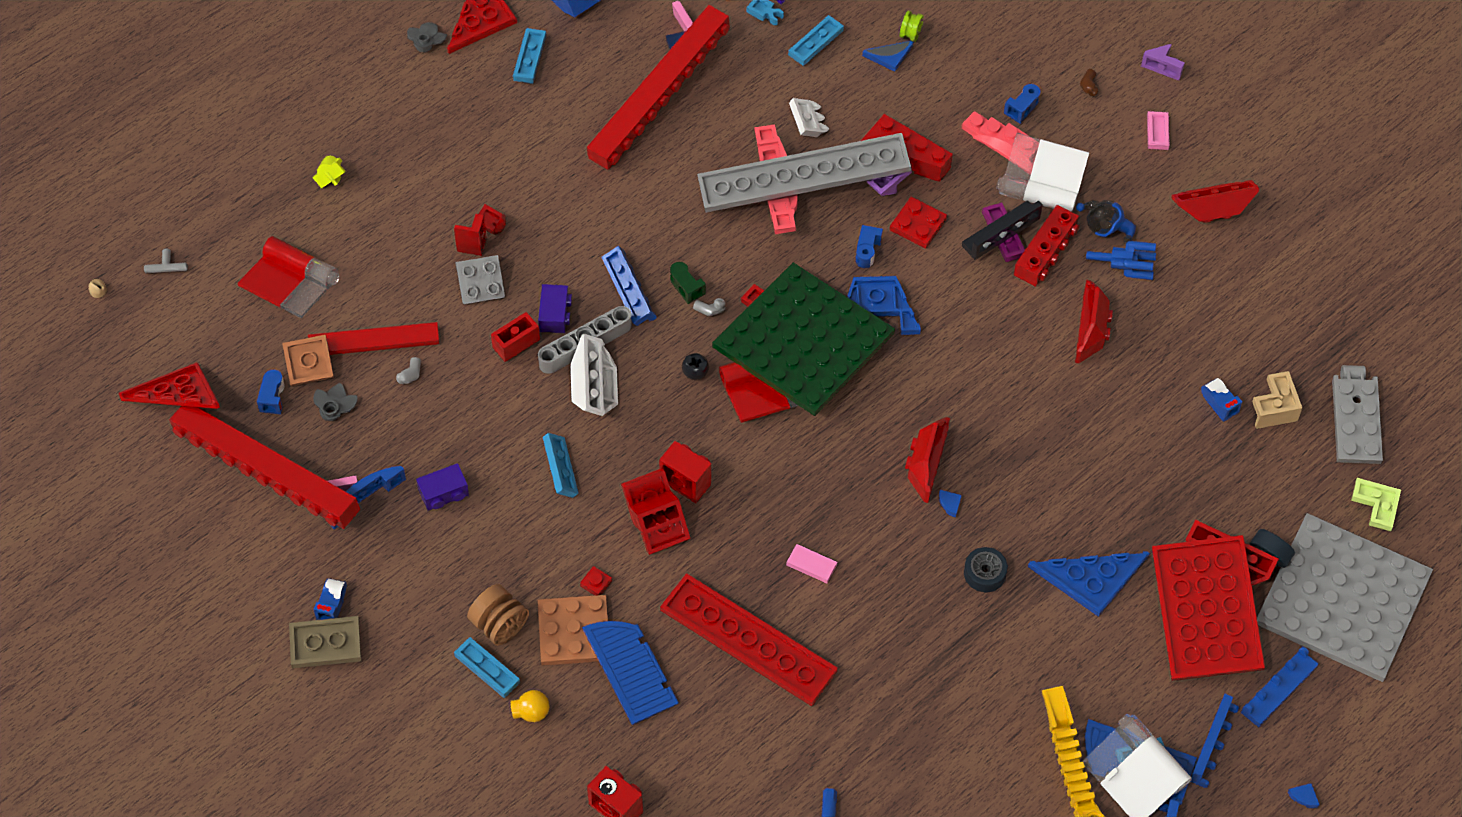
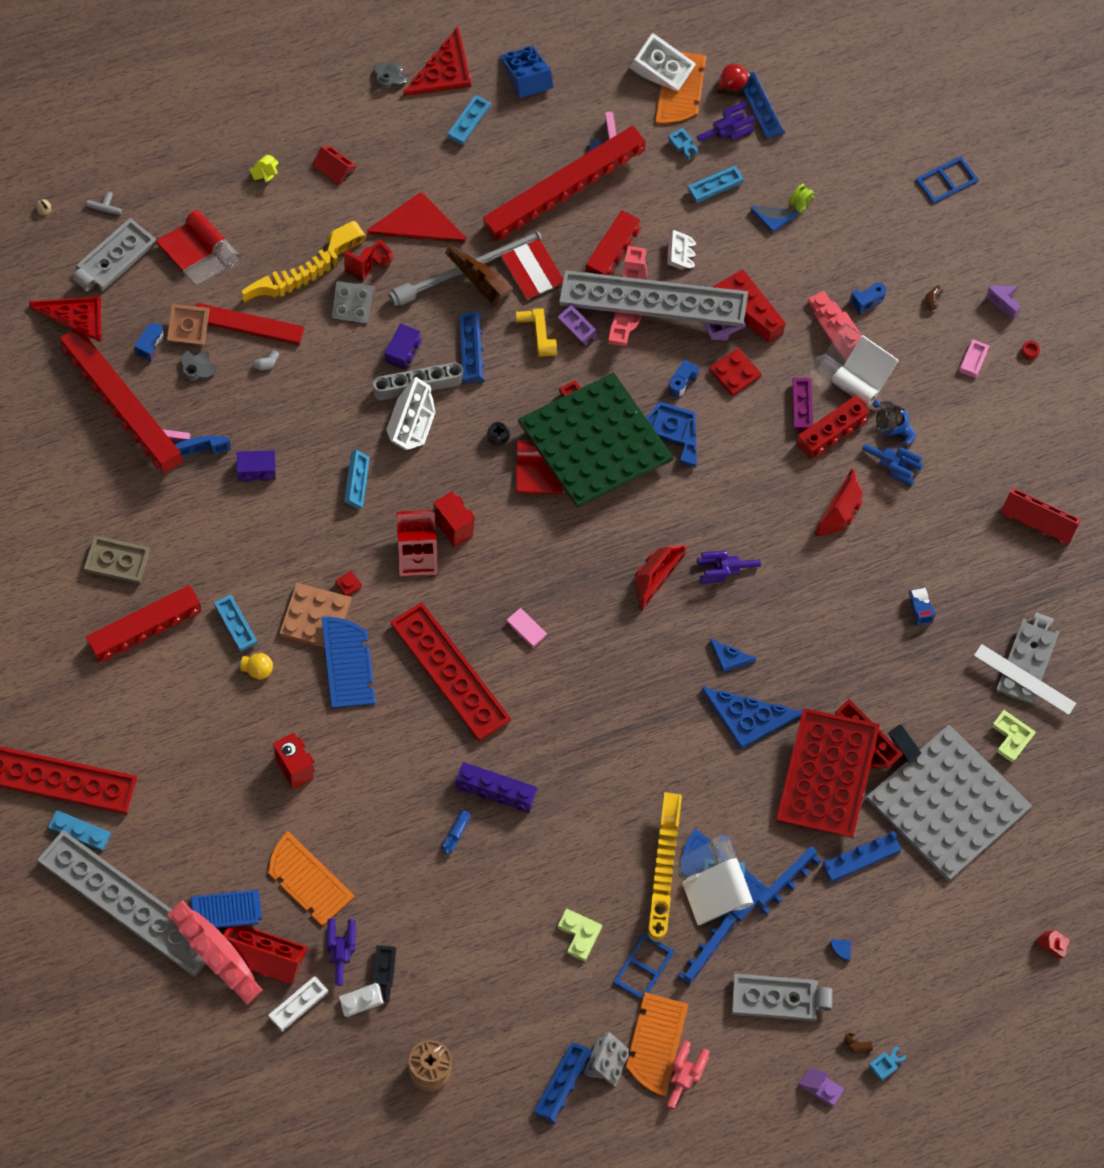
camera: 15 degrees right, 5 degrees up
(200, 308) = (118, 252): none -> light grey hinge
(330, 599) = (134, 527): blue leg -> none
(382, 704) = (143, 624): none -> red brick
(401, 145) = (333, 164): none -> red panel
(441, 220) = (340, 241): none -> yellow piece
(498, 614) = (258, 584): medium nougat wheel -> none
(515, 336) = (361, 360): red brick -> none
(517, 173) = (418, 220): none -> red tile
(616, 211) = (486, 280): none -> reddish brown wedge
(646, 177) = (525, 260): none -> flag
(685, 283) = (518, 360): dark green leg -> none
(705, 259) = (544, 346): none -> yellow beam
(711, 309) = (537, 389): light grey arm -> none
(734, 225) = (578, 325): none -> medium lavender hinge
(736, 132) = (614, 244): none -> red brick
(853, 749) = (496, 787): none -> dark purple brick
(949, 502) = (659, 616): blue tile -> none
(978, 561) = (663, 671): wheel -> none
(996, 426) = (723, 565): none -> dark purple plant
(1002, 229) = (800, 401): black fence -> none
(1042, 521) = (730, 657): none -> blue tile
(1211, 104) = (1030, 350): none -> red tile
(1217, 200) = (992, 436): red wedge -> none
(1280, 406) = (968, 628): tan panel -> none
(1302, 264) = (1041, 516): none -> red brick
(1365, 438) = (1025, 679): none -> white sticker

